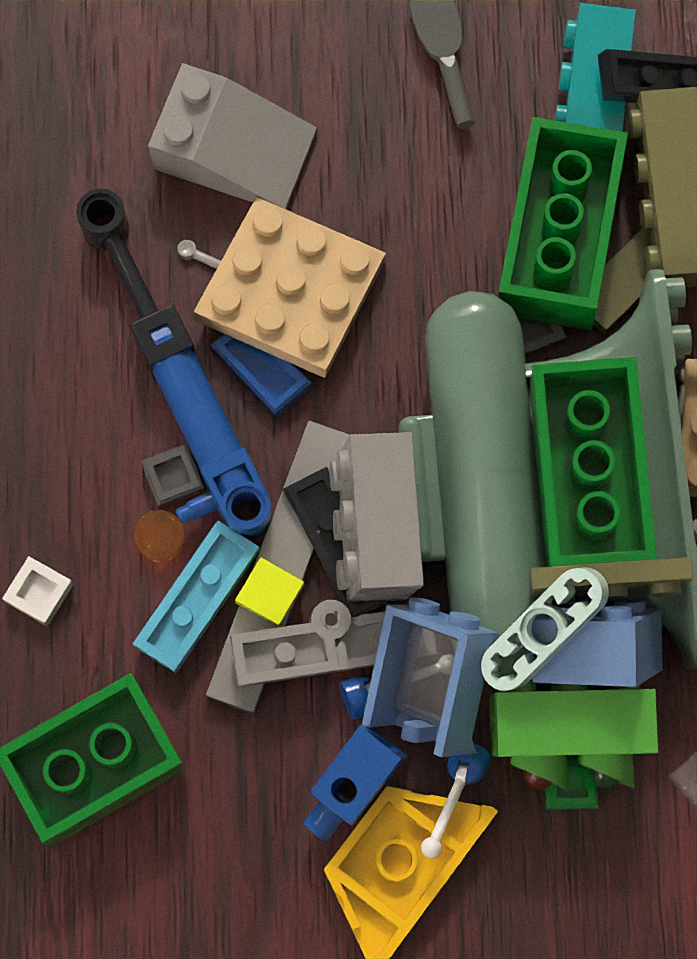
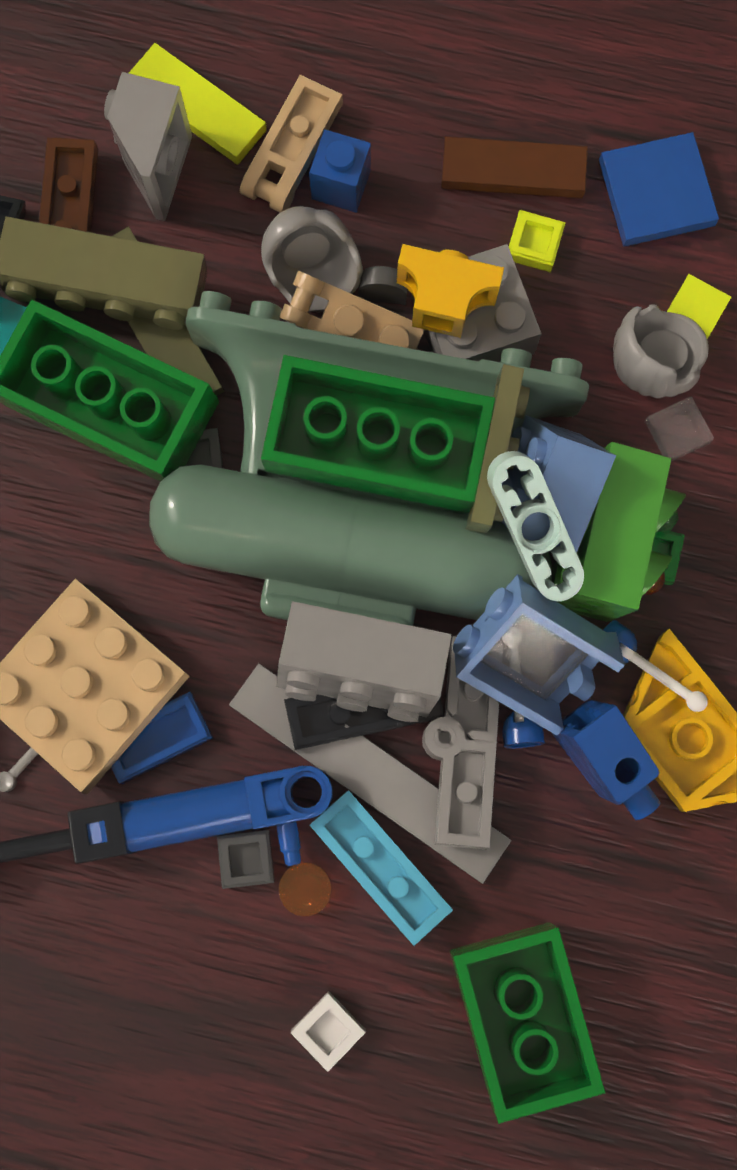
camera: 75 degrees left, 5 degrees up
(269, 592) = (398, 791): neon yellow tile -> none

